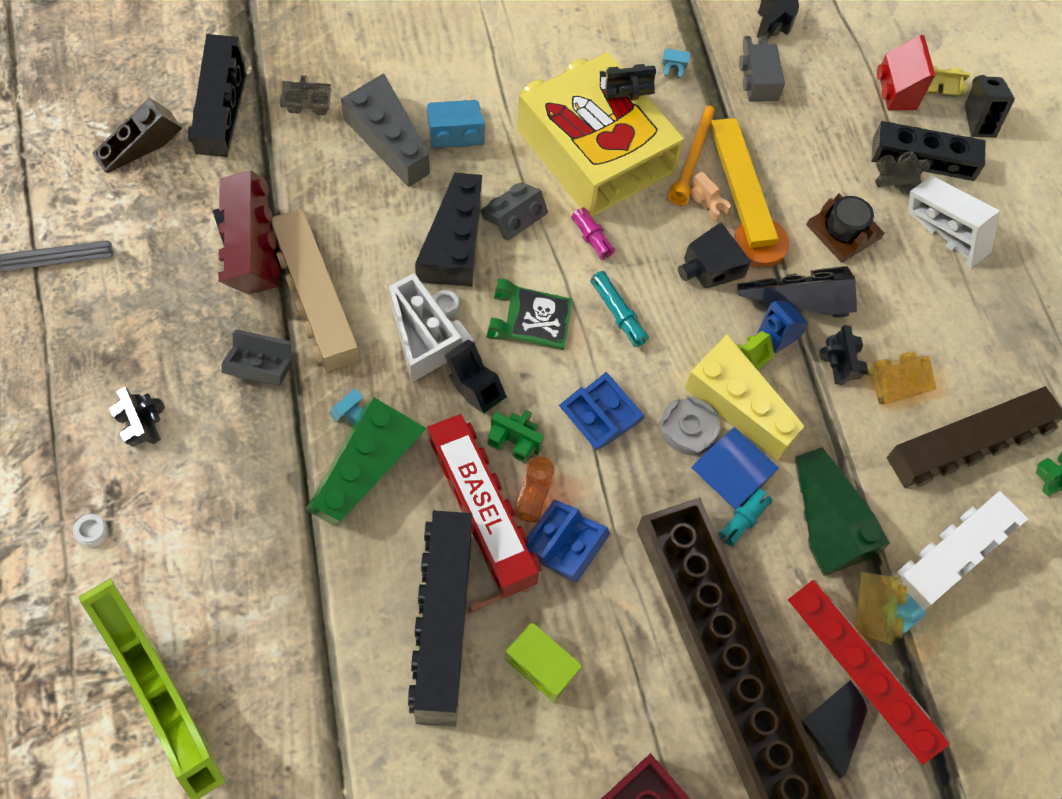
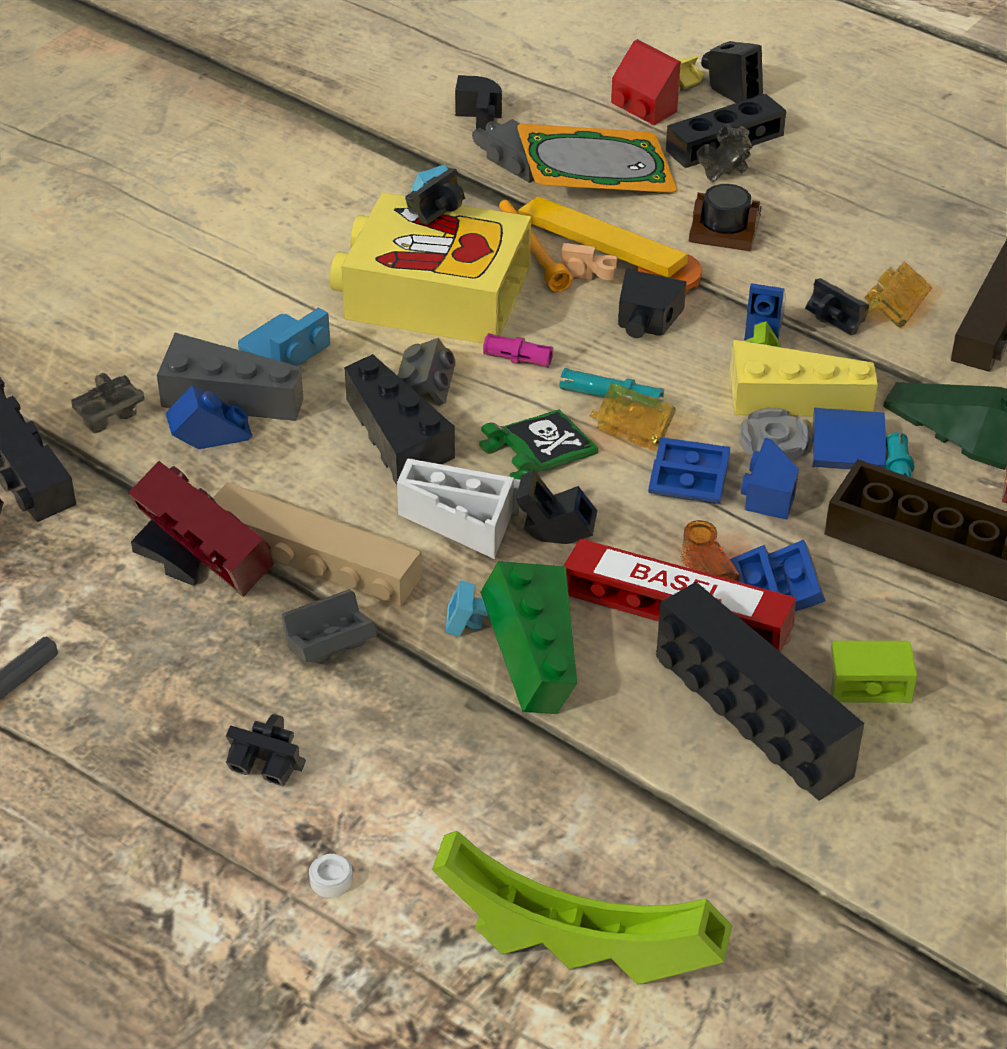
camera: 35 degrees left, 20 degrees down
(348, 152) = (207, 421): none -> blue slope
(518, 431) = (642, 529): green hips -> none
(604, 342) = (634, 415): none -> clear yellow bracket
(639, 464) = (772, 482): none -> blue slope
(805, 114) = (596, 158): none -> sticker
(824, 292) = (773, 264): black wedge -> none
(957, 217) = (807, 160): white wedge -> none

